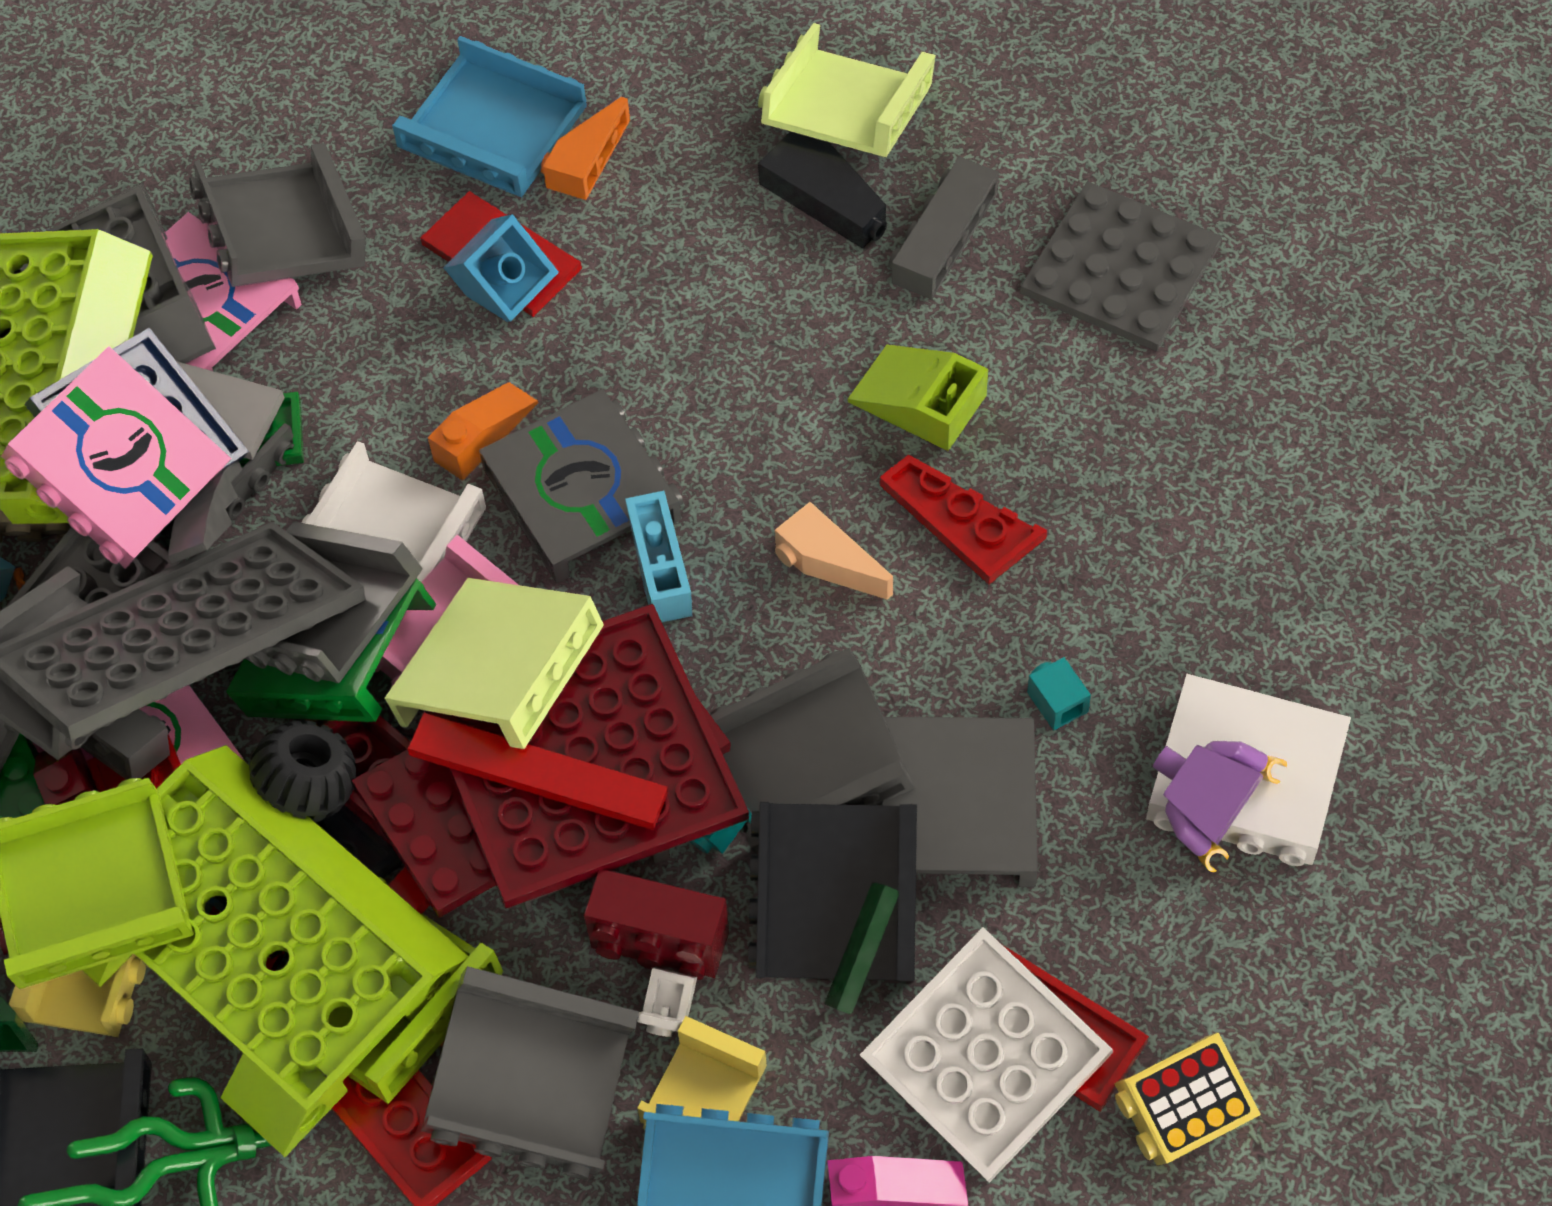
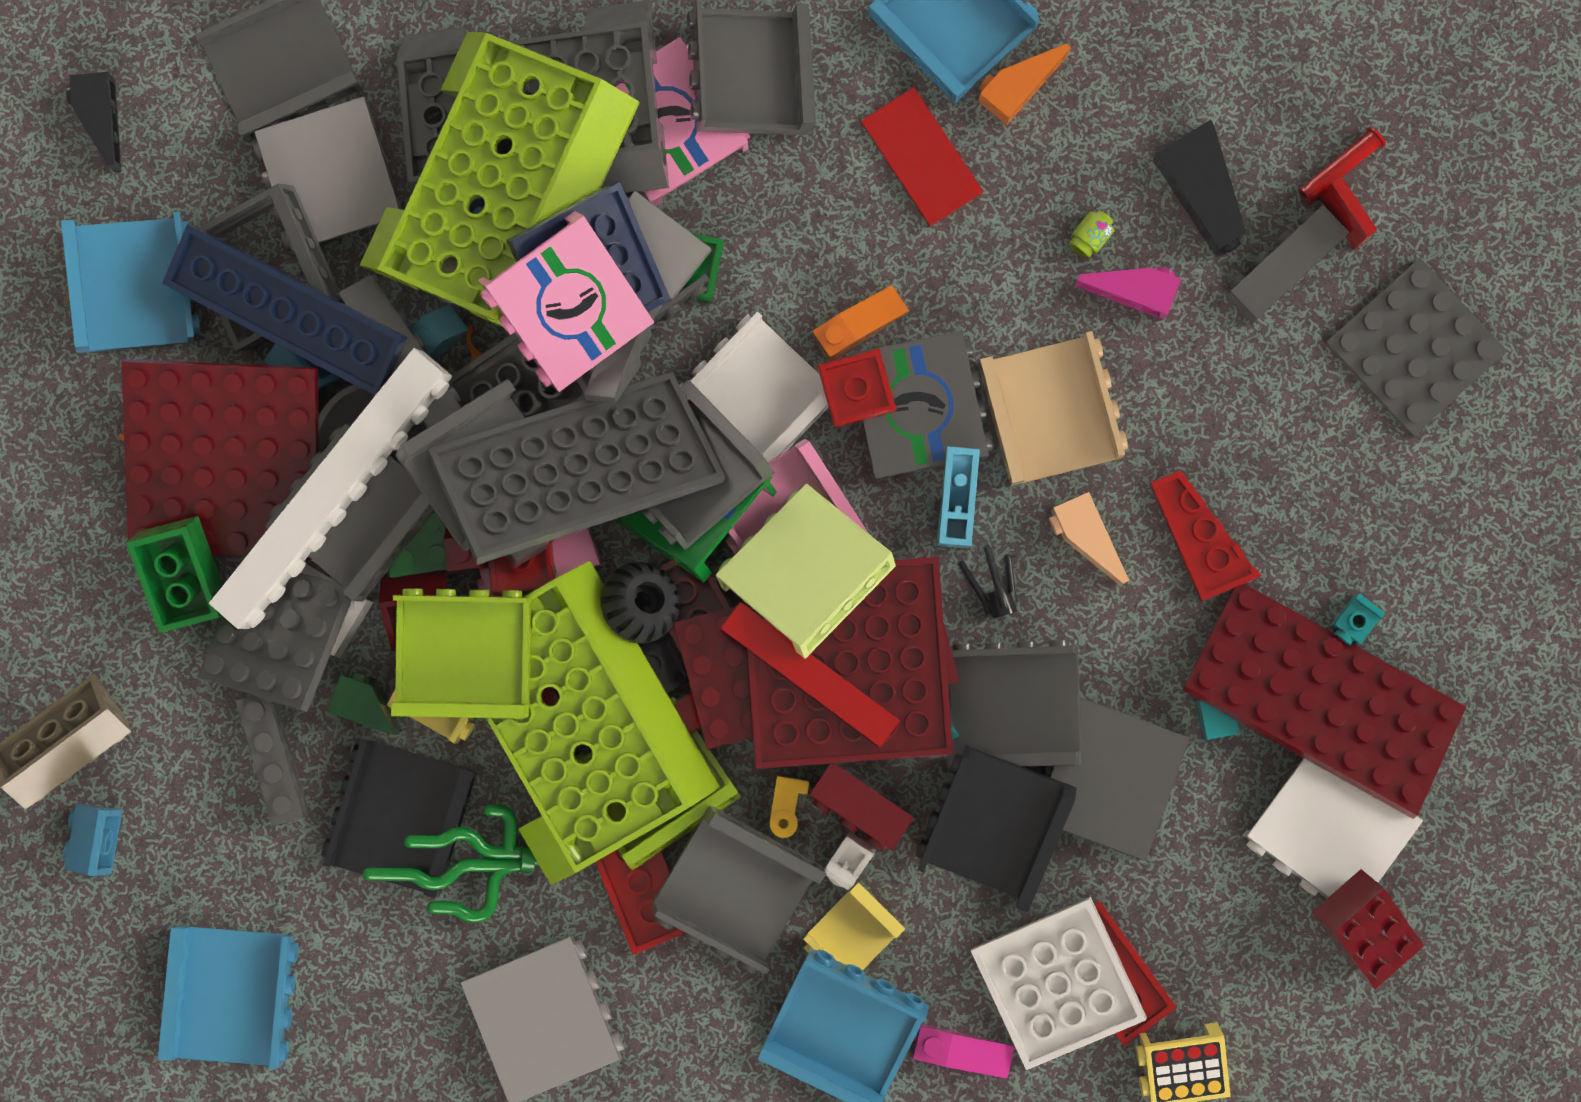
camera: 20 degrees right, 25 degrees up
(499, 478) = (856, 388): none -> red tile
(501, 268) = (916, 182): dark azure slope -> none
(561, 957) = (783, 817): none -> yellow leg
(717, 264) = (1091, 234): none -> lime brick
(740, 445) = (1053, 409): none -> tan panel
(751, 652) = (1002, 600): none -> black plant
(787, 297) = (1141, 289): none -> dark pink slope
(843, 97) = (1251, 108): yellowish green panel -> none
(862, 948) = (999, 875): dark green tile -> none
(923, 392) = (1209, 414): lime slope -> none
(956, 139) = (1342, 164): none -> red pin
(992, 149) = (1348, 211): none -> red tile
(1177, 541) = (1344, 625): none -> teal brick
(1177, 630) = (1325, 699): none -> dark red plate
(1211, 791) = (1296, 851): medium lavender torso -> none
(1340, 851) = (1368, 928): none -> dark red brick

